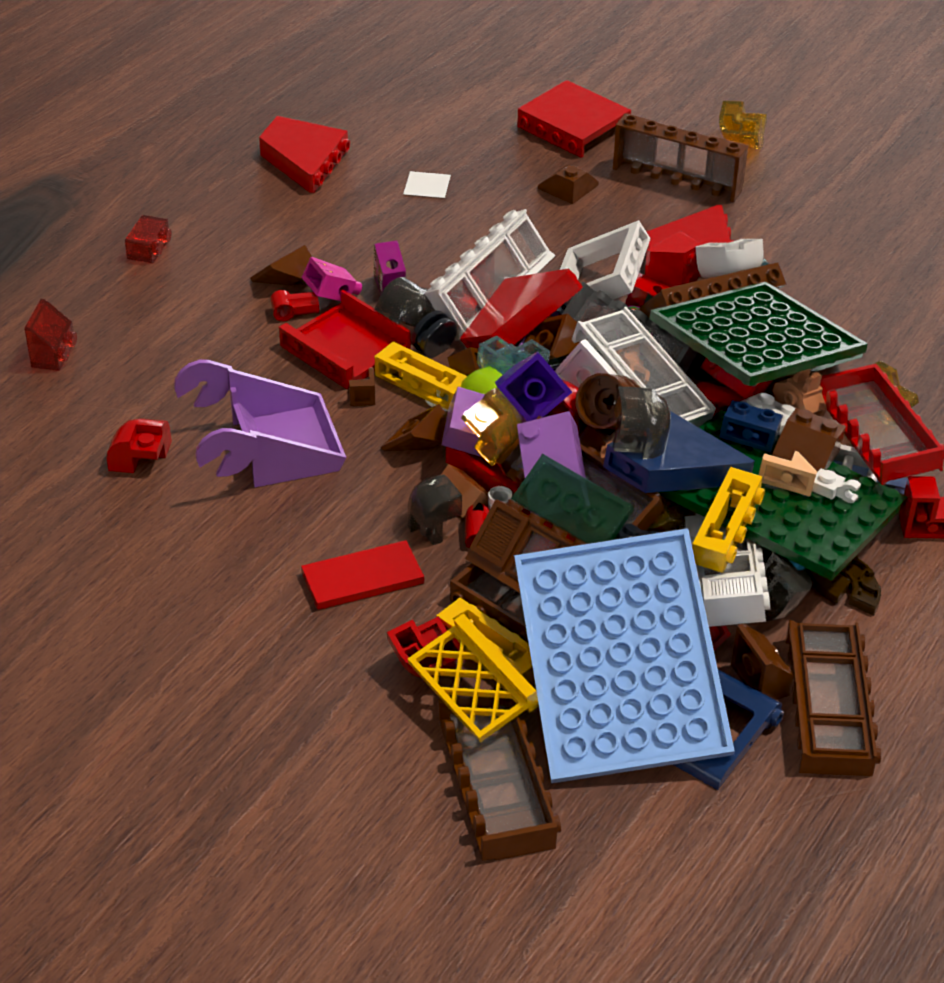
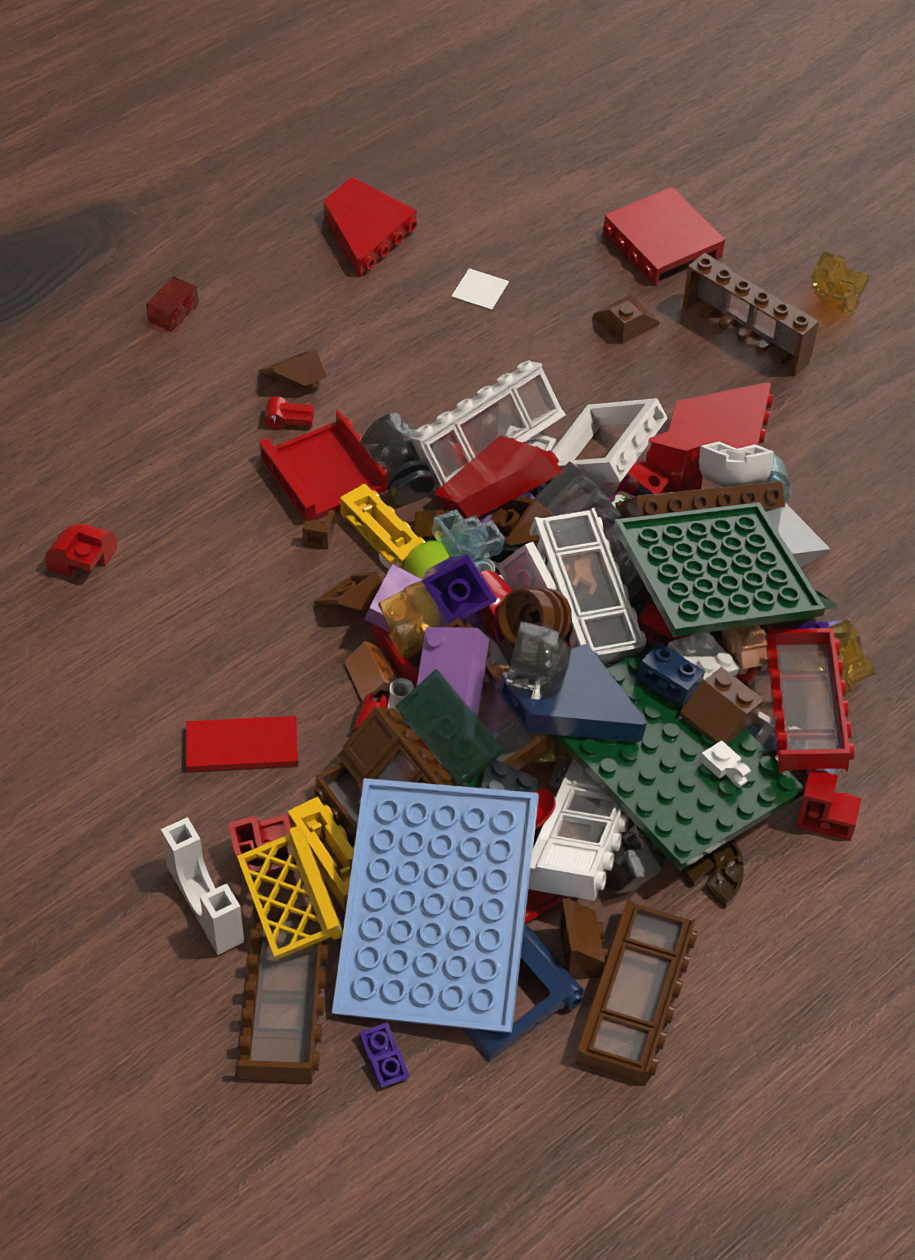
camera: 15 degrees right, 10 degrees up
(49, 337) = (36, 405): clear red slope -> none
(282, 425) = (221, 559): medium lavender piece -> none
(329, 279) = (330, 393): dark pink torso -> none
(383, 253) = (395, 400): magenta torso -> none
(405, 718) = (213, 907): none -> white arch
(431, 504) = (329, 687): clear smoke brick -> none
(615, 807) = (383, 1055): none -> dark purple slope
(745, 493) = (622, 758): yellow brick -> none
(789, 475) = (685, 744): light nougat slope -> none

